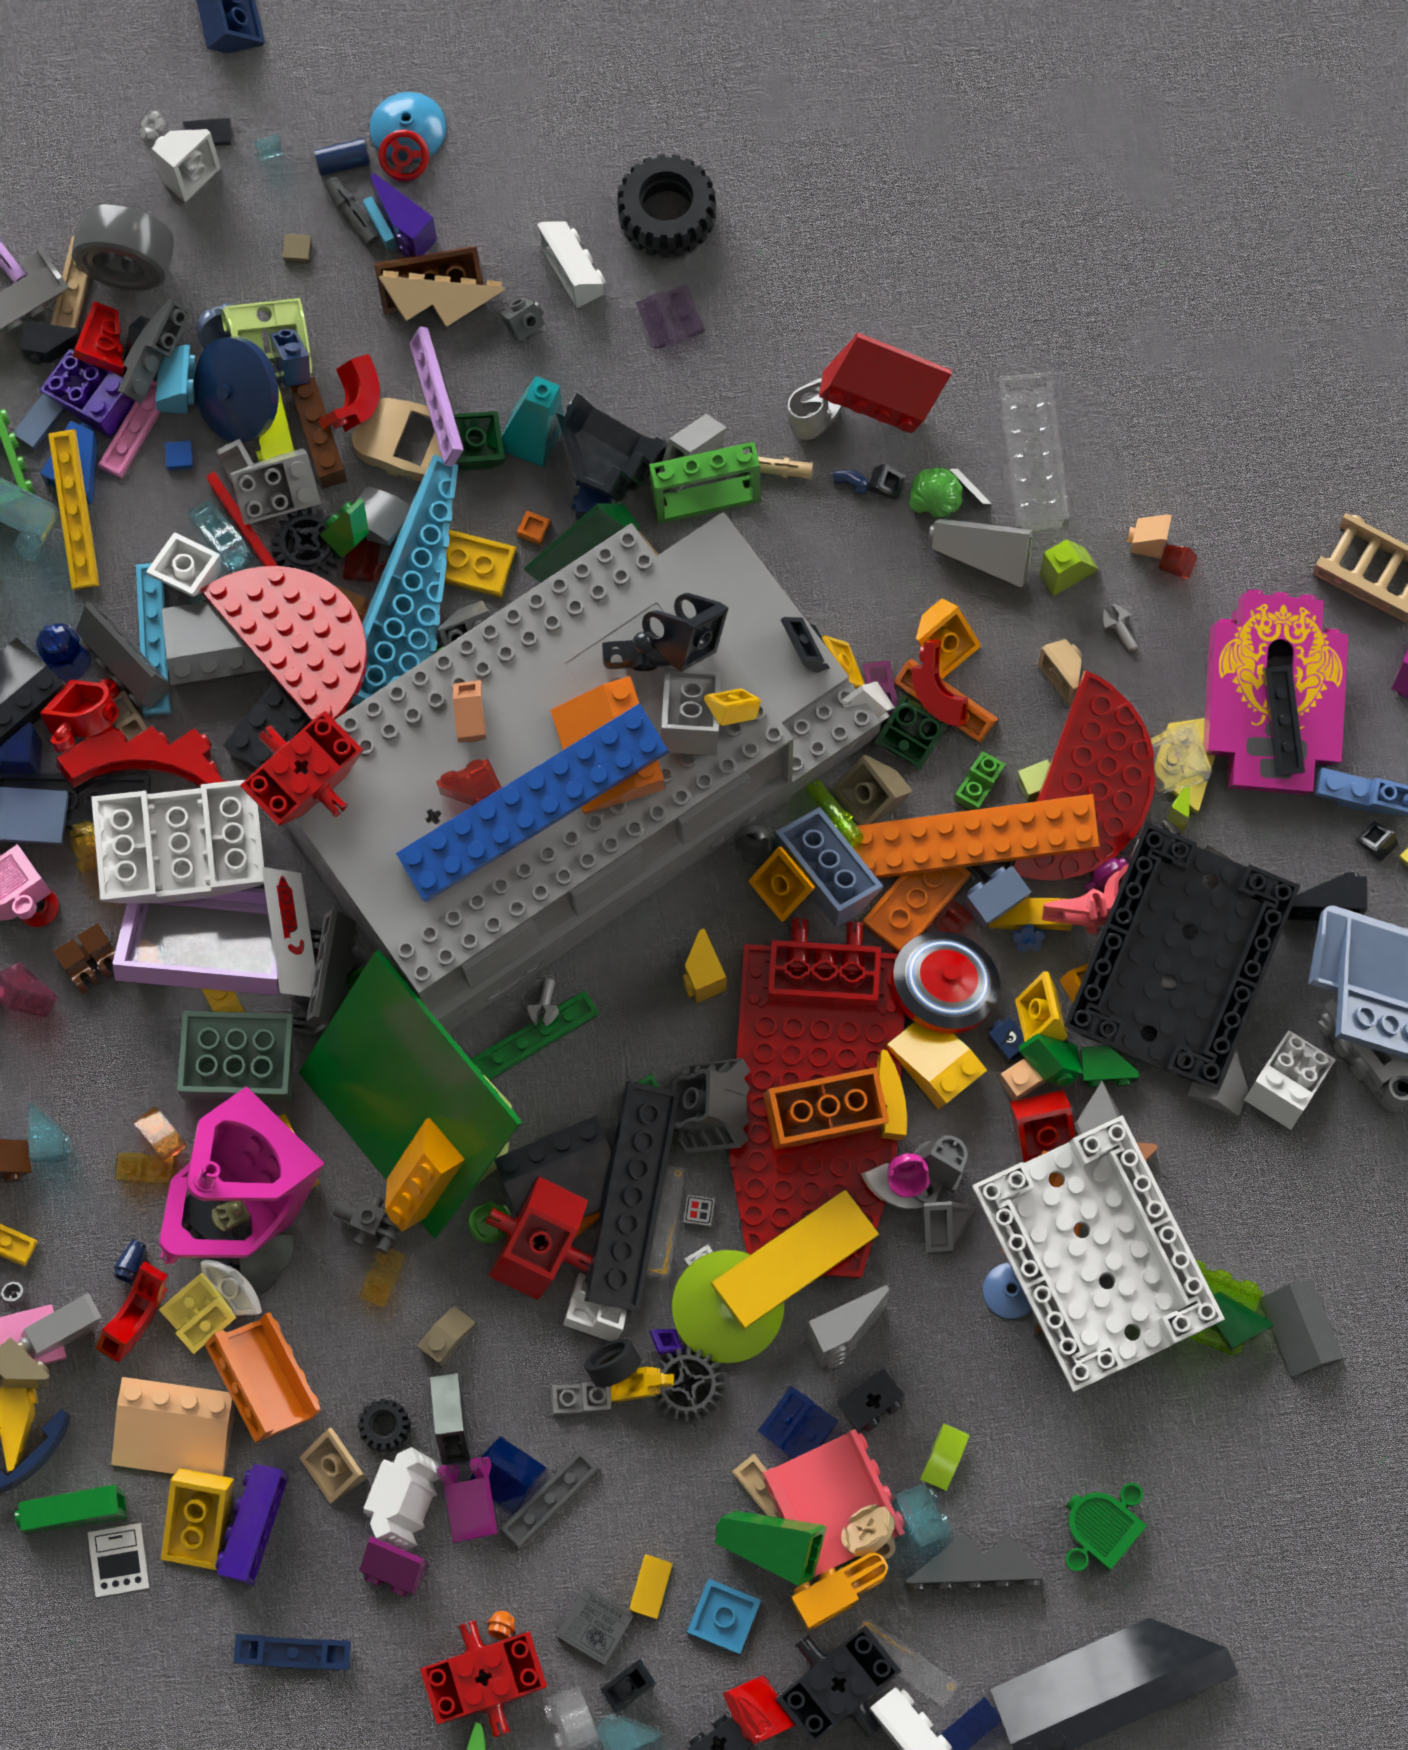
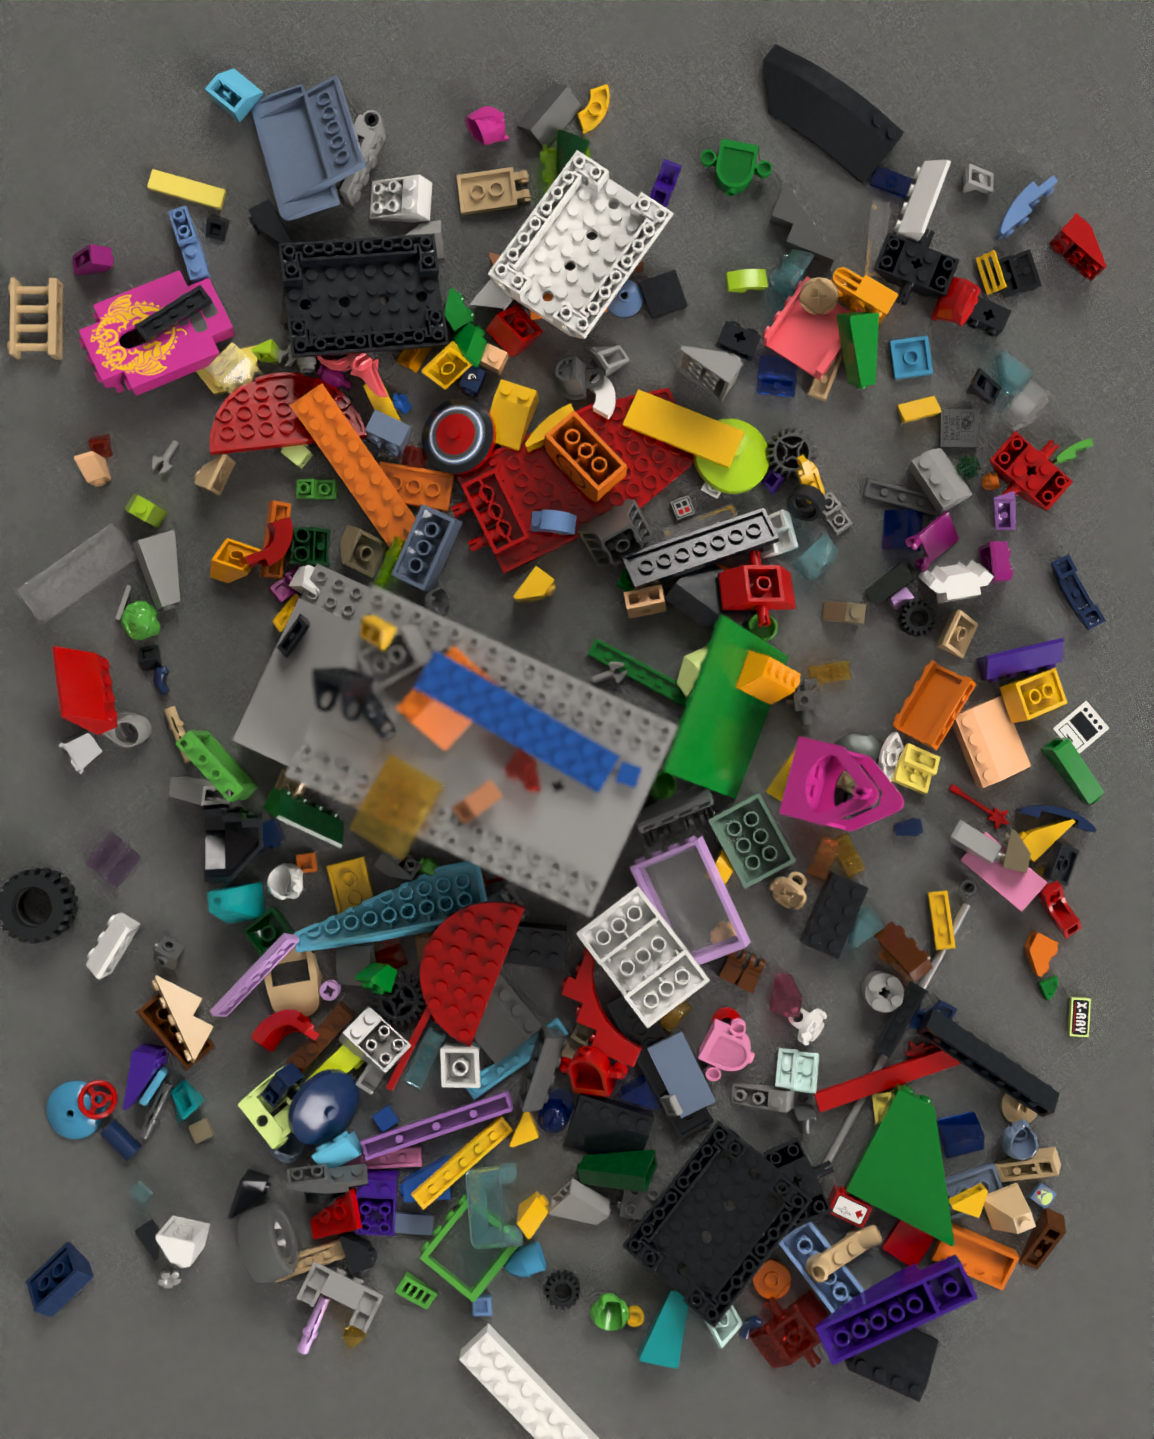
camera: 125 degrees left, 15 degrees up
(61, 602) = (525, 1130): none -> yellow slope
(77, 1383) = (996, 816): none -> red piece
(83, 1106) = (833, 914): none -> black brick
(133, 507) = (437, 1125): none -> medium lavender tile
(135, 1315) = (941, 805): red arch -> none
(144, 1066) = (788, 892): none -> tan tile
(193, 261) = (249, 1191): none -> black slope
(290, 931) = (659, 852): white sticker -> none
(322, 750) = (599, 896): red slope -> none
(342, 250) = (186, 1100): none -> teal slope
(370, 478) = (330, 986): none -> lavender wheel
(396, 900) = (628, 774): none -> blue tile
(422, 1418) = (900, 598): none -> lavender slope
(451, 1617) = (1005, 511): none -> medium lavender slope
(518, 622) = (397, 806): none -> clear yellow slope
(524, 490) = (285, 881): none -> white hair
(536, 1338) = (816, 556): none -> clear light blue slope
(537, 1604) = (968, 466): none -> clear green gear
(542, 1557) = (939, 480): none -> light grey slope
(607, 1093) = (645, 601): none -> light nougat brick
(768, 1033) = (553, 521): none -> medium blue brick
(781, 884) = (455, 568): light orange slope -> none
(819, 342) = (80, 749): none -> container
(908, 1175) = (594, 388): dark pink hair -> none
(987, 1341) = (663, 294): none -> black tile
(1129, 1424) = (665, 182): none -> dark purple slope
(1242, 1198) = (491, 190): none -> tan tile
(1278, 1393) = (595, 110): none -> yellow tile
(1326, 1238) = (487, 125): none -> dark pink helmet

